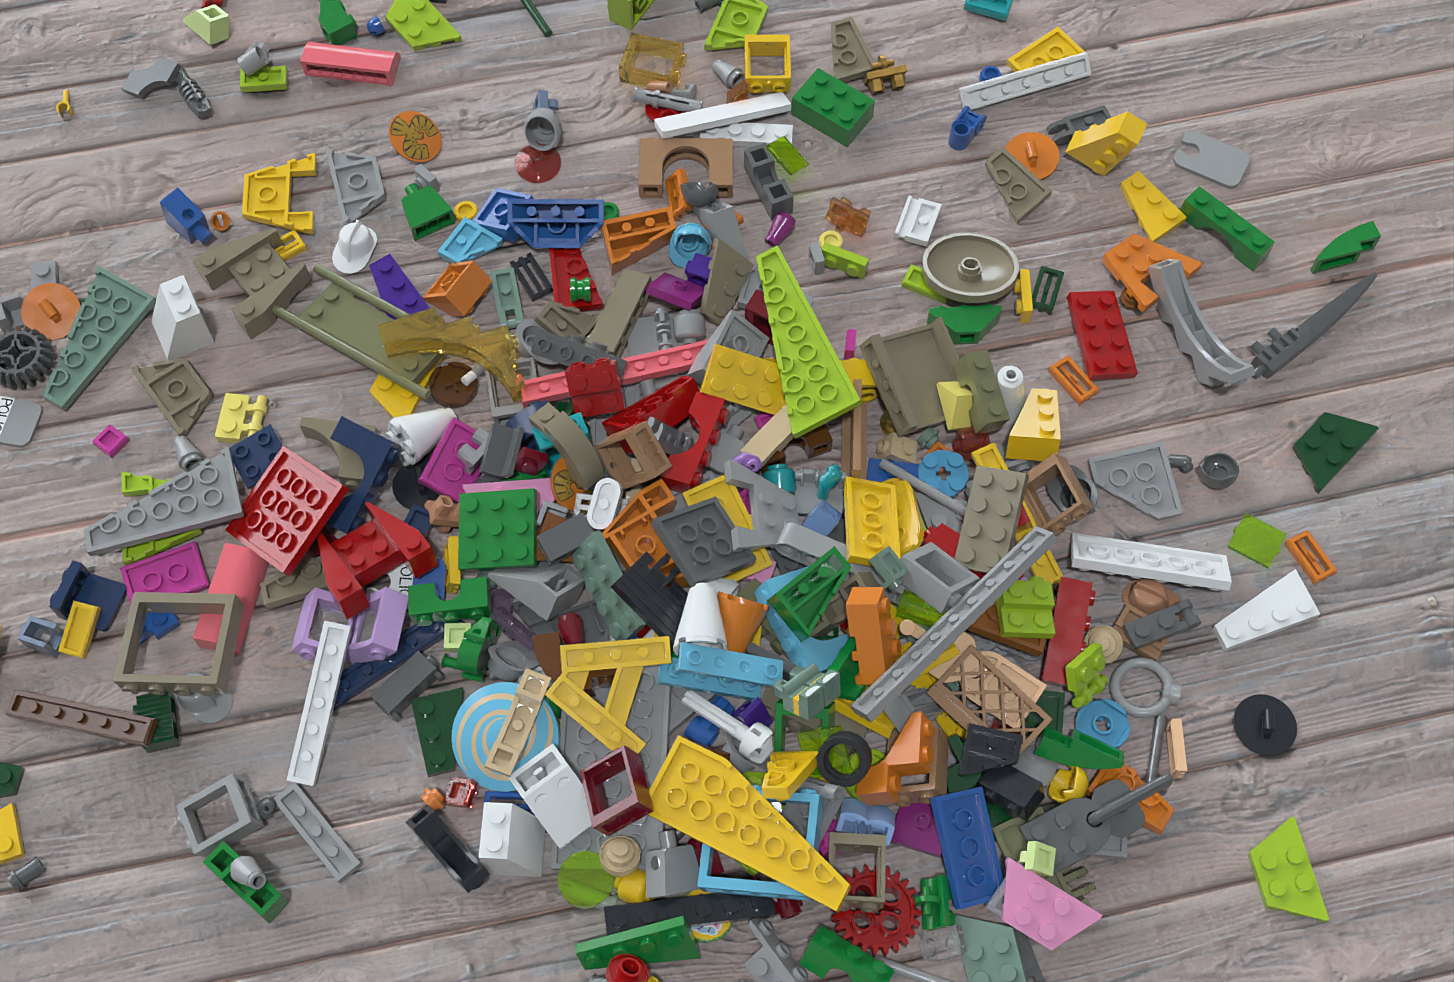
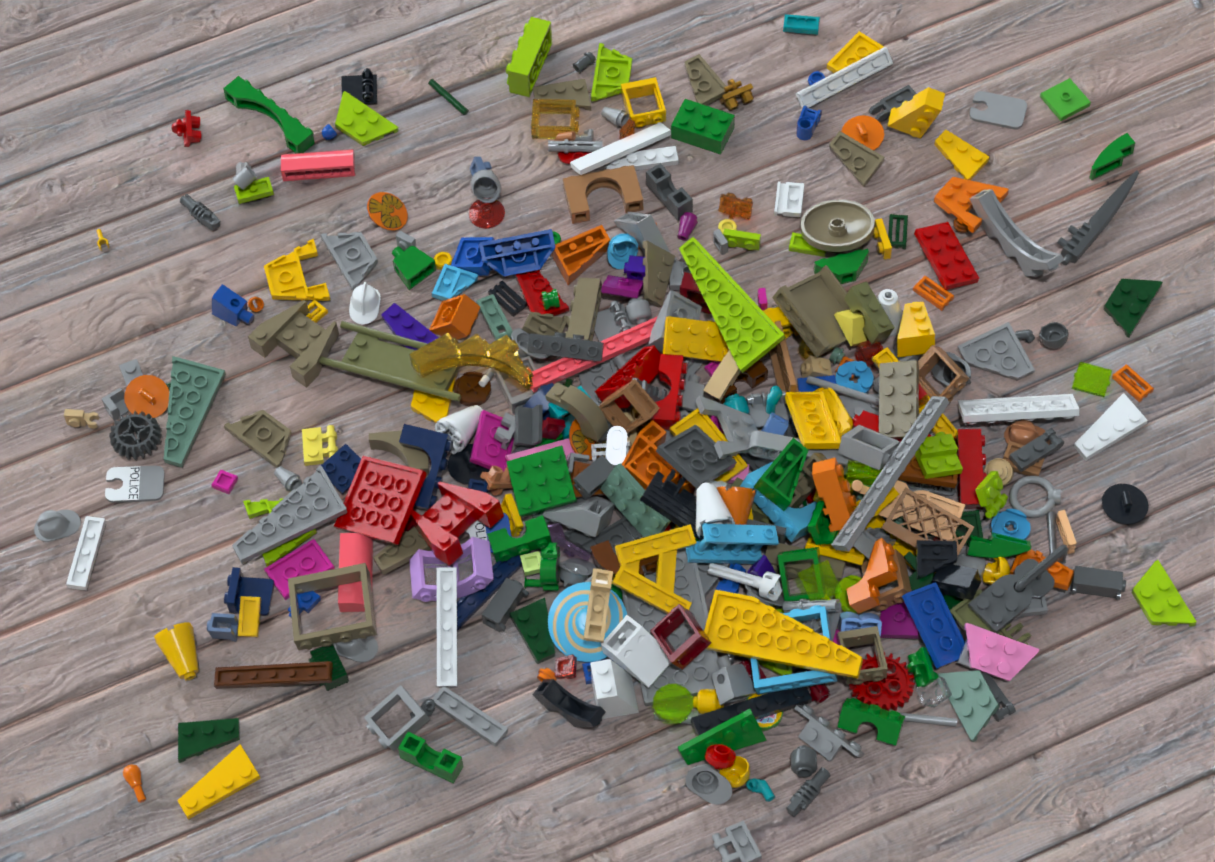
camera: 10 degrees left, 5 degrees down
(26, 873) = (267, 787): dark grey pin -> none
(143, 81) = (171, 202): tile -> none
(179, 320) = (252, 382): white slope -> none
(209, 23) = (198, 155): yellowish green slope -> none
(247, 872) = (433, 747): light grey cone -> none
(571, 628) = (614, 536): dark red cone -> none
(595, 387) = (585, 366): red plate -> none
(620, 856) = (693, 681): tan plate -> none
(674, 193) = (604, 212): orange tile -> none
(683, 31) = (566, 90): none -> dark tan wing
(697, 195) = (619, 212): dark grey hair -> none
(749, 461) = (712, 395): medium lavender arm -> none
(787, 155) = (678, 169): clear neon green piece -> none
(787, 773) = (799, 598): yellow wing -> none
(808, 690) = (798, 541): sand green hips -> none
(830, 773) = (838, 566): black tyre -> none
(889, 567) = (835, 445): sand green bracket -> none
(1038, 858) = (987, 619): yellowish green tile -> none
(1205, 832) = (1098, 582): none -> dark grey brick
(1248, 243) = (1039, 167): green arch -> none
(1300, 162) = (1065, 99): none -> bright green plate

